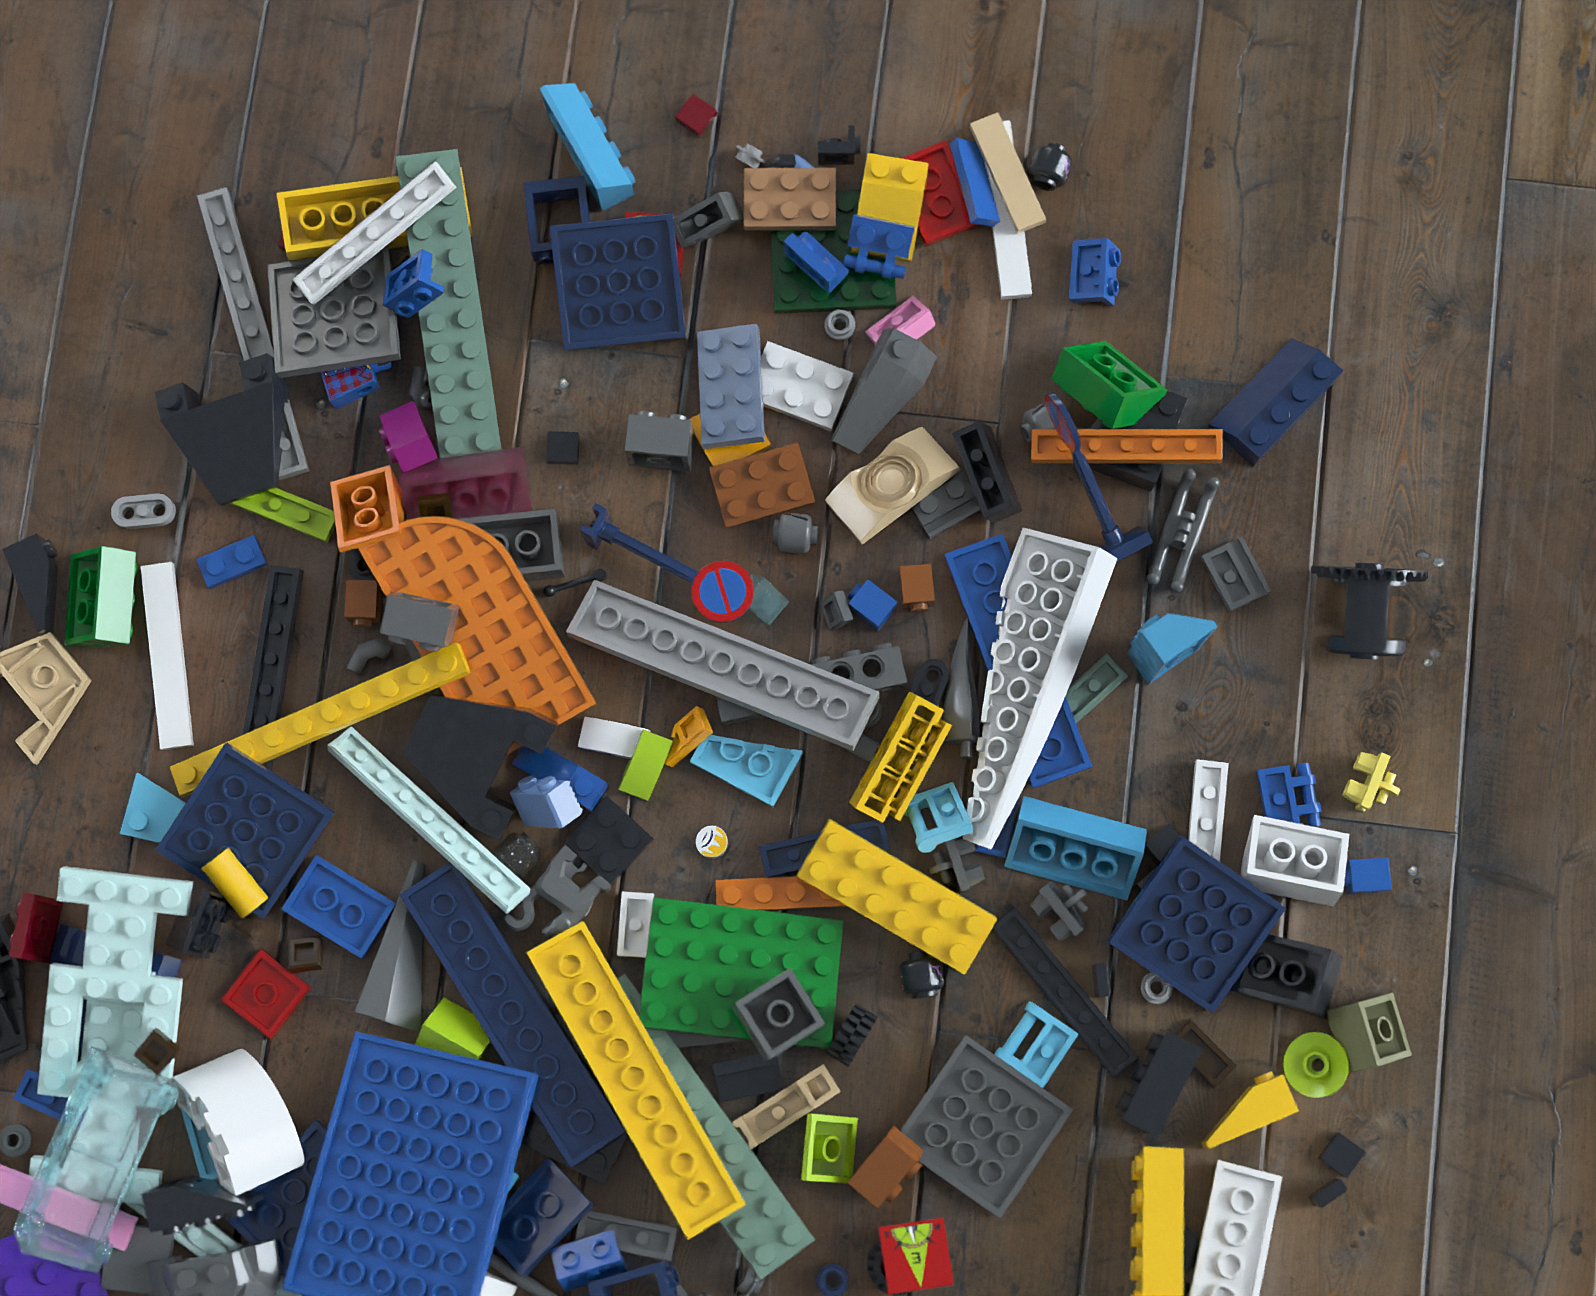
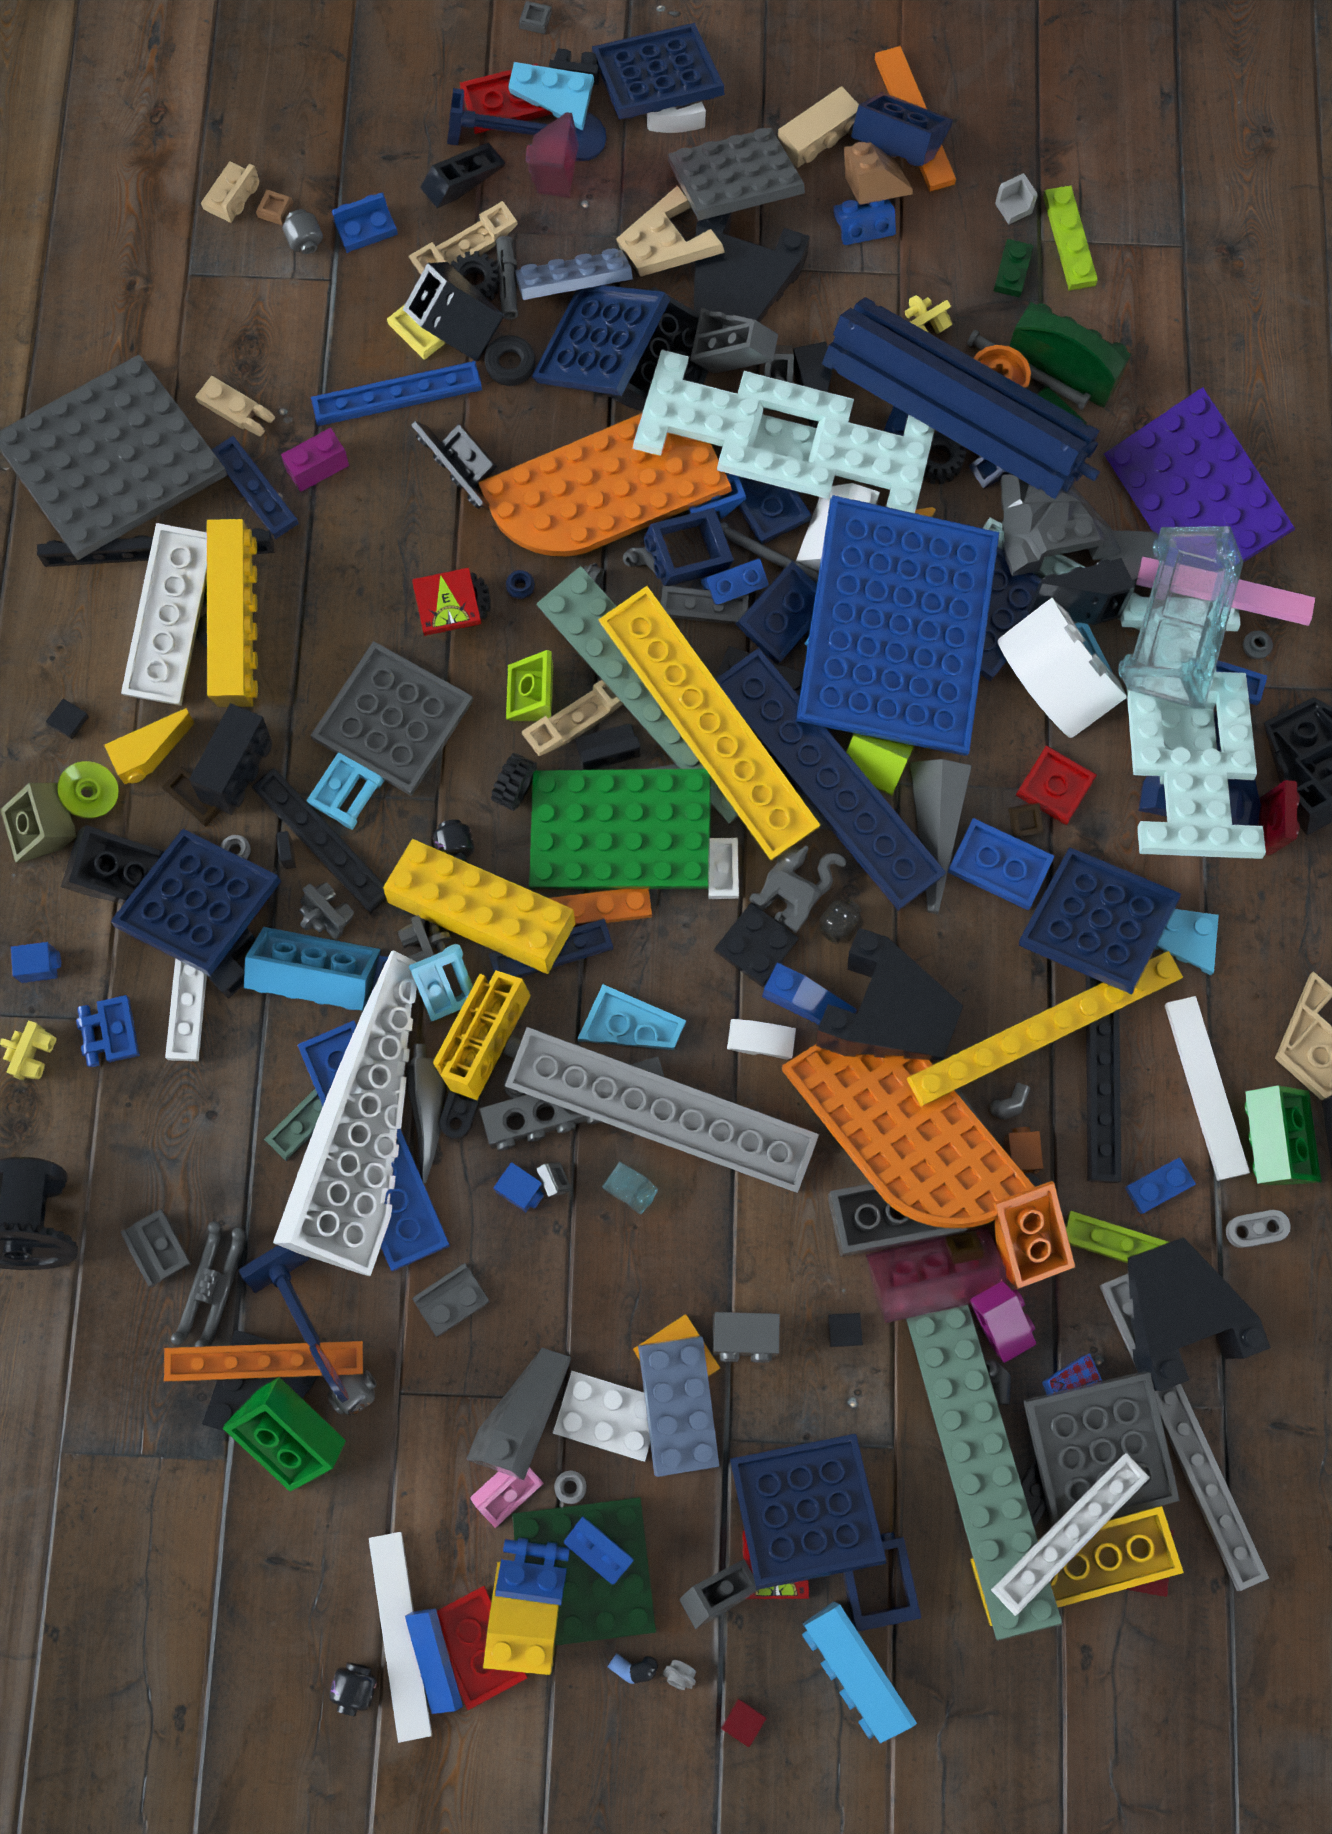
camera: 170 degrees right, 5 degrees down
(157, 1051) = (1144, 707): dark brown tile -> none
(199, 930) = (1123, 841): black slope -> none
(234, 883) = (1101, 870): yellow brick -> none
(410, 287) = (1025, 1477): blue bracket -> none
(420, 620) = (962, 1115): dark grey brick -> none
(429, 820) = (929, 944): light aqua tile -> none
(545, 802) = (818, 964): medium blue brick -> none
(599, 575) = (793, 1200): black hinge -> none
(645, 765) = (727, 1015): lime slope -> none
(688, 734) = (689, 1047): light orange tile -> none
(711, 841) = (658, 950): tile -> none
(718, 590) = (671, 1185): piece -> none
(761, 484) = (638, 1304): dark orange plate -> none
(777, 1015) = (582, 782): dark grey brick -> none
(789, 199) = (632, 1623): medium nougat plate -> none
(794, 533) = (601, 1256): dark grey head -> none
(836, 152) = (588, 1687): black bracket -> none
(885, 1168) = (477, 668): dark orange piece -> none
(891, 483) = (505, 1315): tan slope -> none
(916, 587) = (475, 1208): dark orange brick -> none
(987, 472) = (408, 1331): black brick -> none
(1007, 173) = (398, 1676): tan tile -> none
(1094, 271) = (302, 1568): blue bracket -> none
(1167, 642) = (219, 1153): dark azure slope -> none
(1275, 399) = (111, 1437): dark blue slope -> none
(1295, 860) = (102, 969): white slope -> none
(1328, 1193) = (80, 683): black tile -> none

